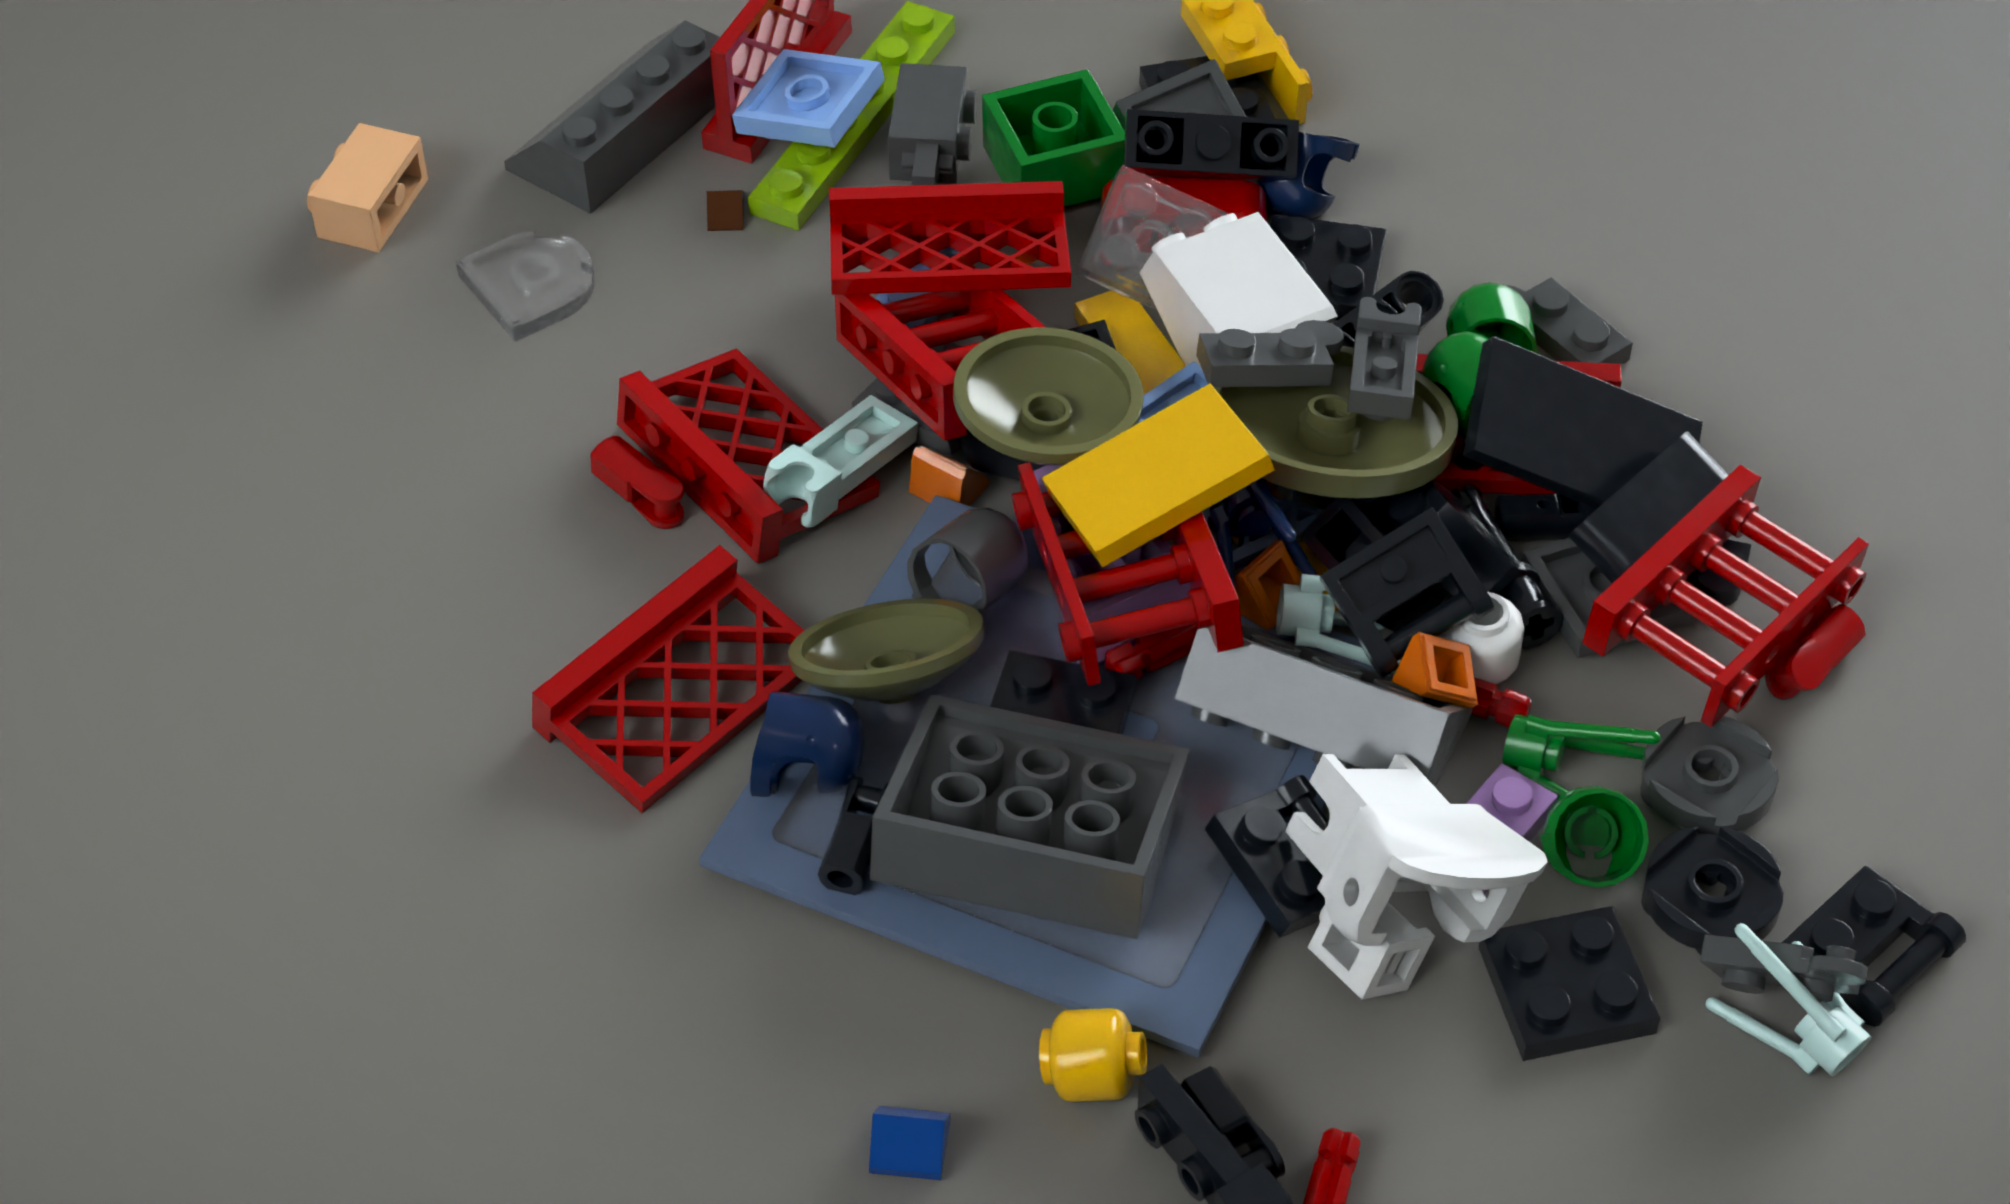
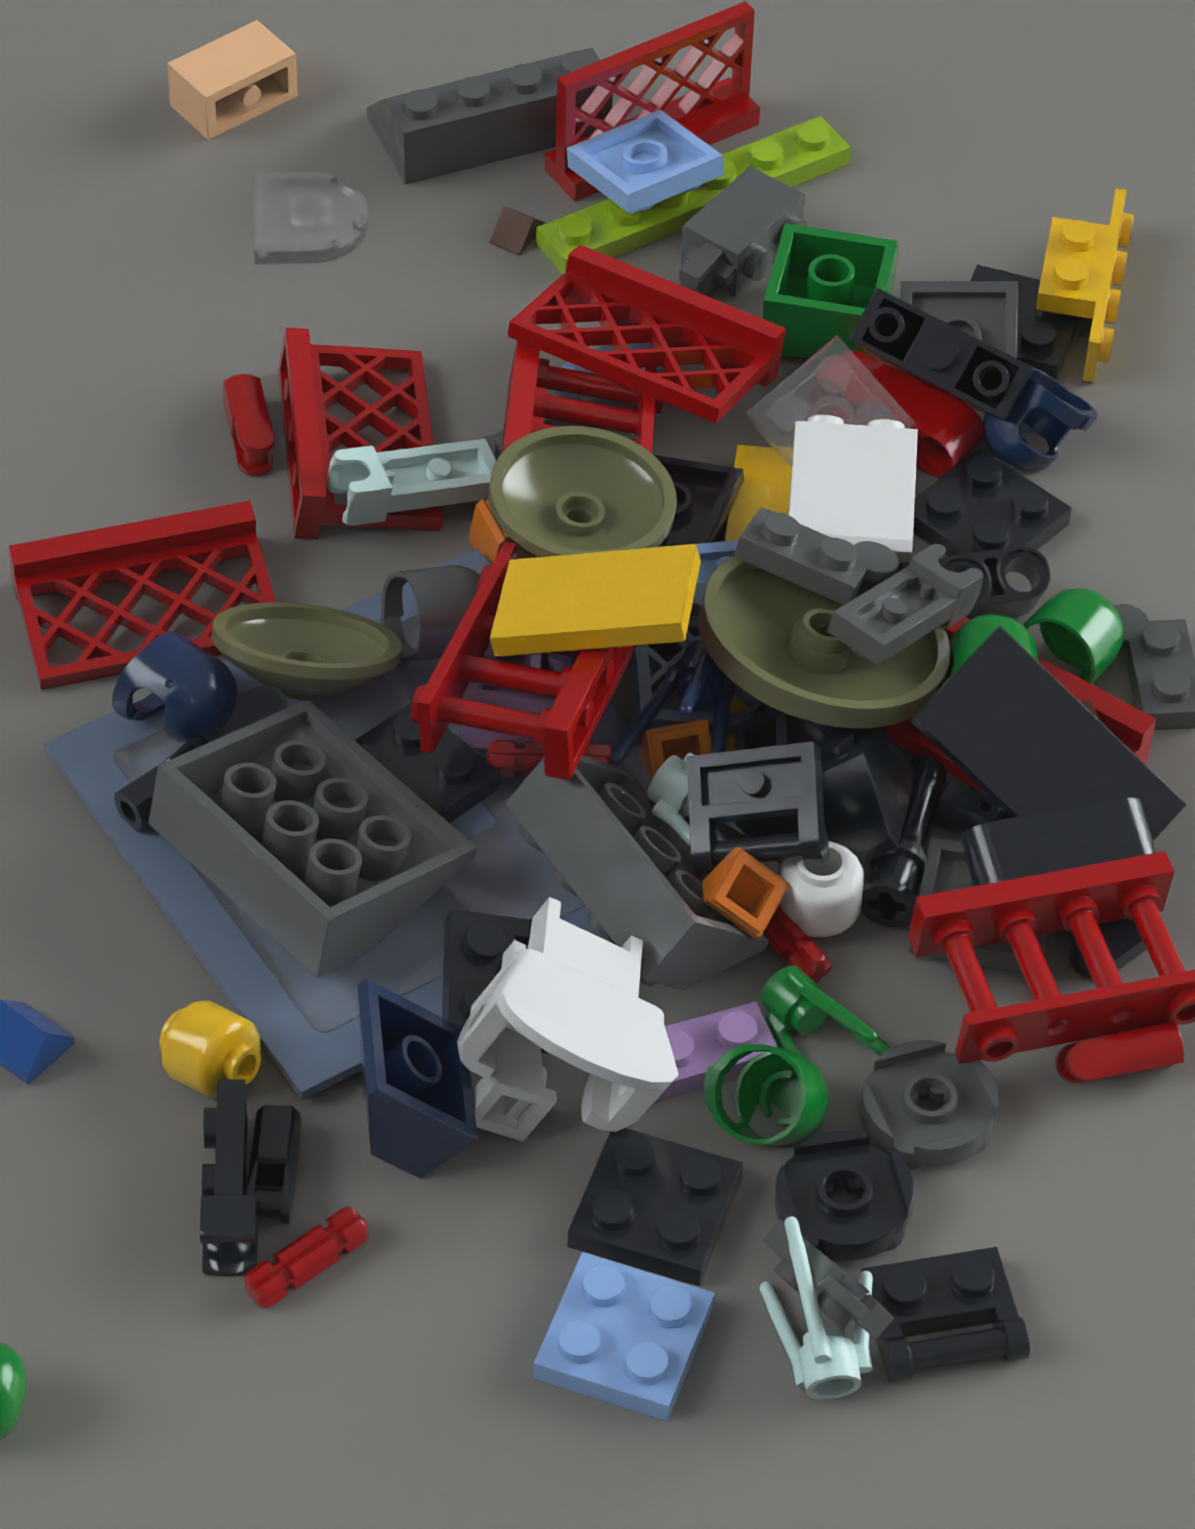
camera: 30 degrees right, 0 degrees up
(1304, 988) = (412, 1082): none -> dark blue slope
(1642, 1111) = (624, 1336): none -> light blue plate

